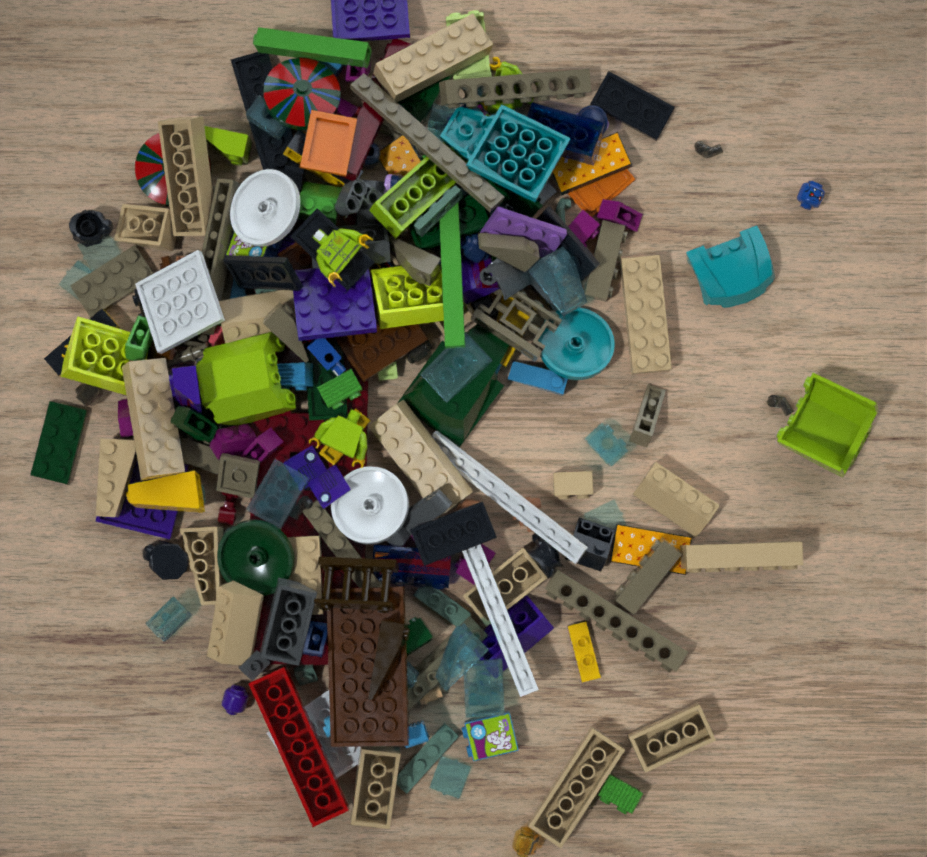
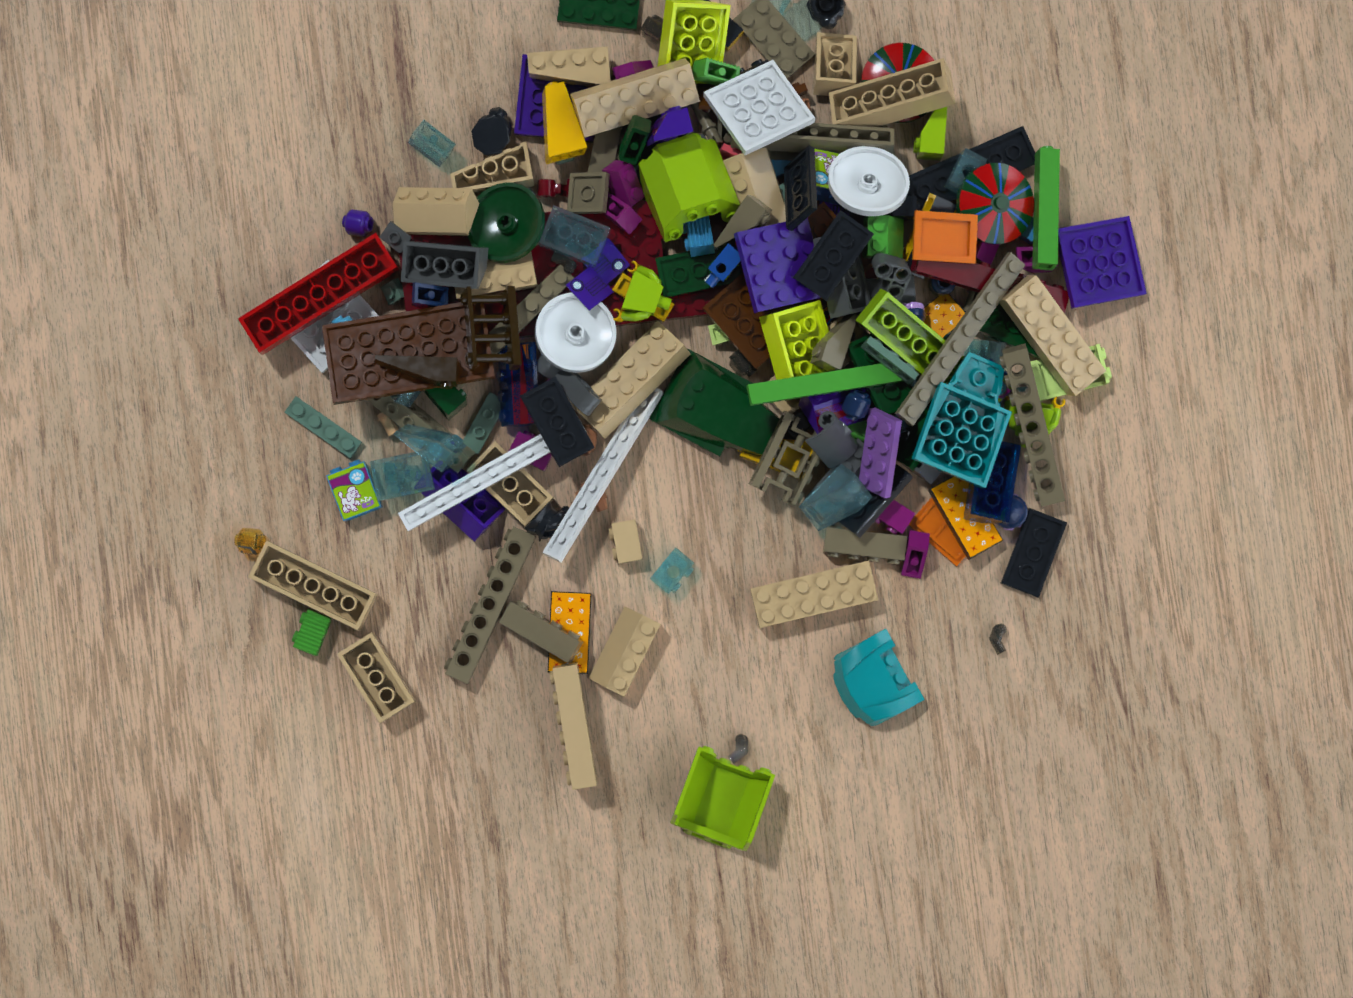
camera: 80 degrees right, 0 degrees up
(337, 250) = (831, 260): lime torso -> none
(340, 389) = (691, 285): bright green brick -> none
(375, 786) = (287, 378): tan brick -> none
(417, 734) = (346, 414): dark azure brick -> none
(450, 777) = (307, 455): clear light blue piece -> none
(456, 368) = (729, 402): clear light blue slope -> none
(510, 249) = (860, 440): dark tan slope -> none
(537, 378) = (732, 491): dark azure slope -> none
(560, 209) = (913, 491): sand green arm -> none
(579, 345) = (771, 528): teal dish -> none
(584, 651) = (453, 576): yellow plate -> none
(597, 539) = (570, 573): black slope -> none
(606, 515) = (593, 580): clear light blue piece -> none
(647, 416) = (708, 610): dark tan slope -> none
(810, 195) = (964, 752): blue head -> none

